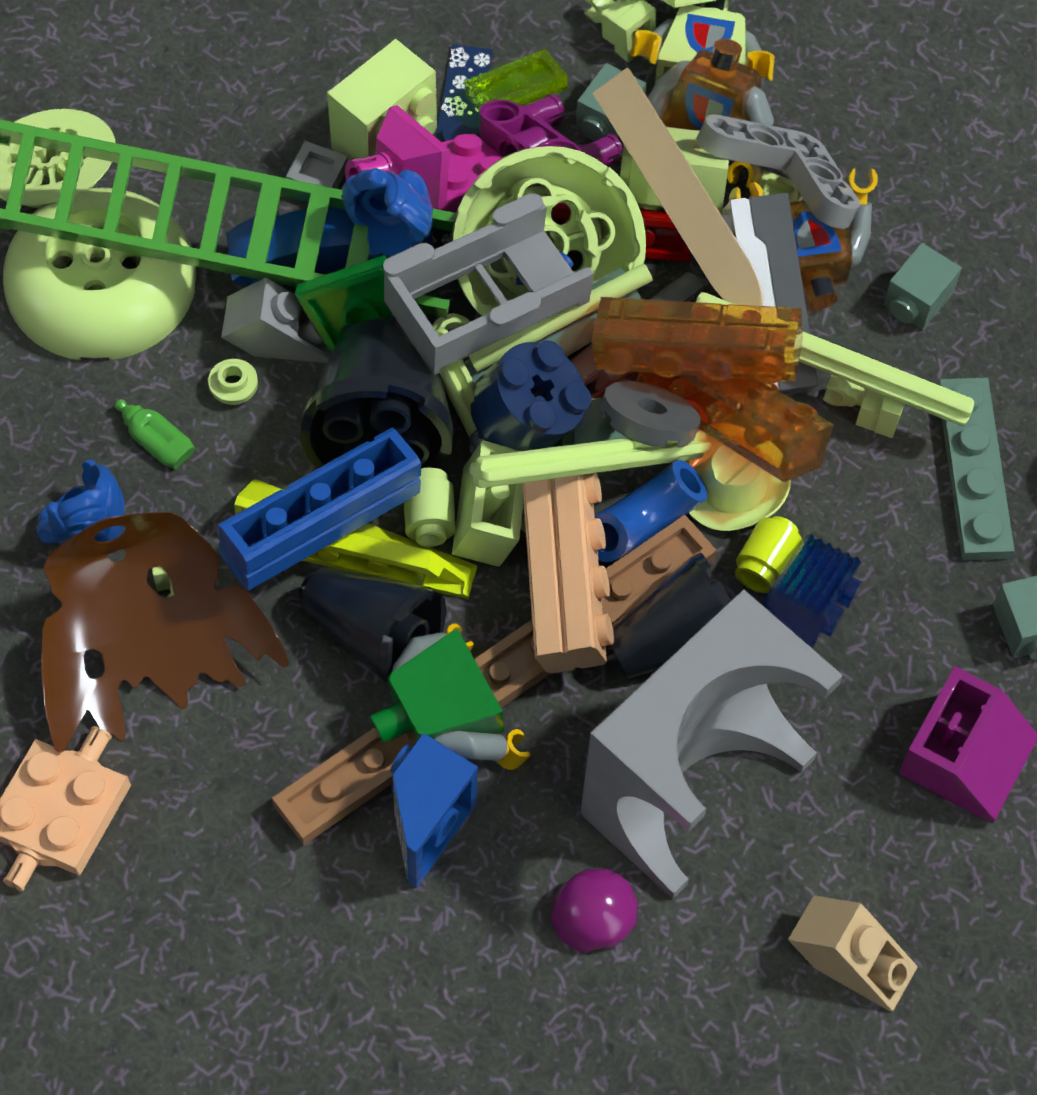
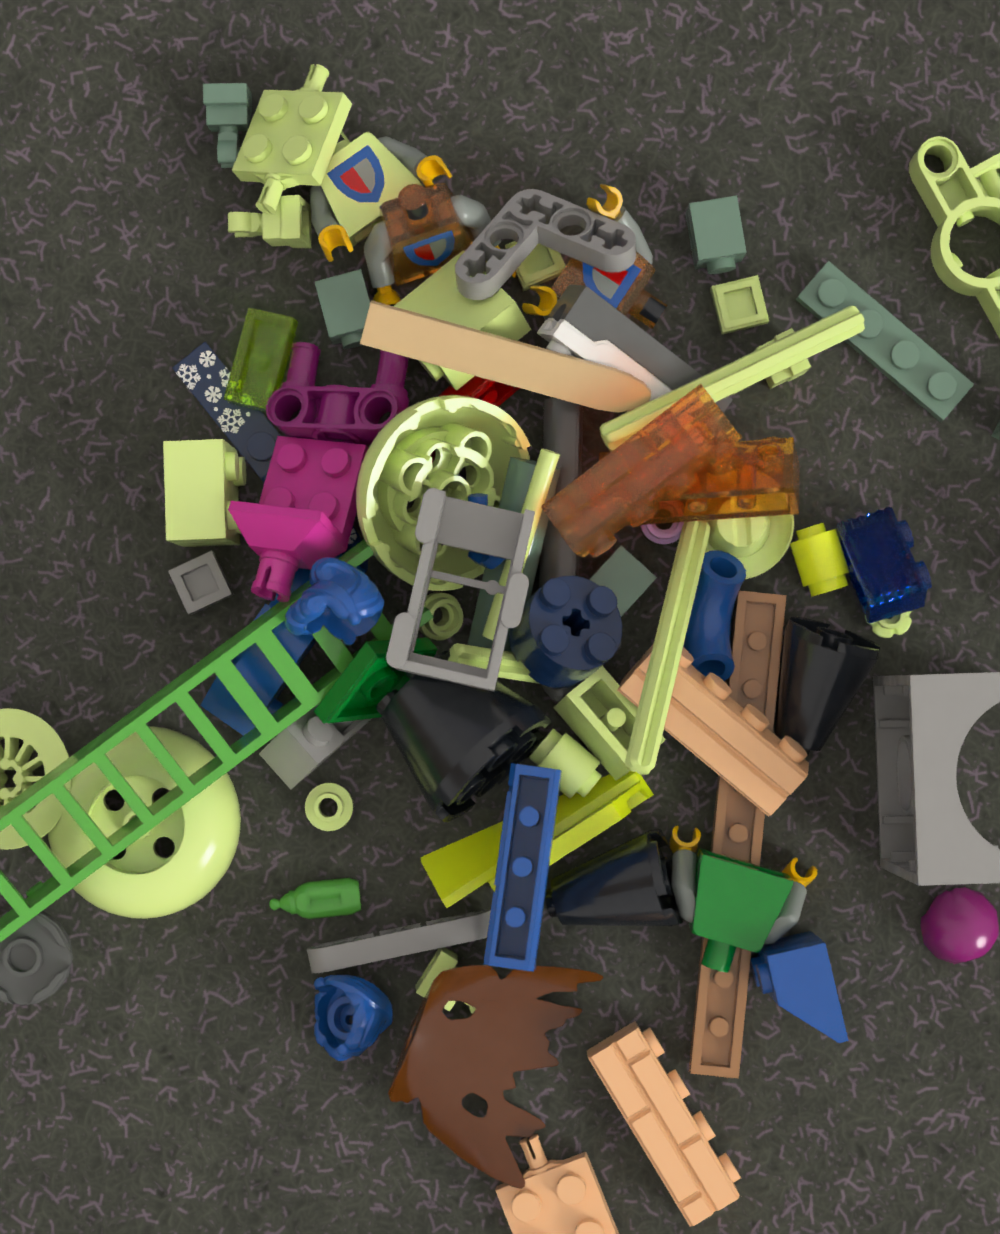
camera: 40 degrees left, 25 degrees up
(155, 491) = (399, 941): none -> light grey beam
(210, 815) = (663, 1123): none -> light nougat brick
(649, 414) = (659, 534): dark grey tile -> none
(893, 346) = (739, 304): none -> yellowish green tile

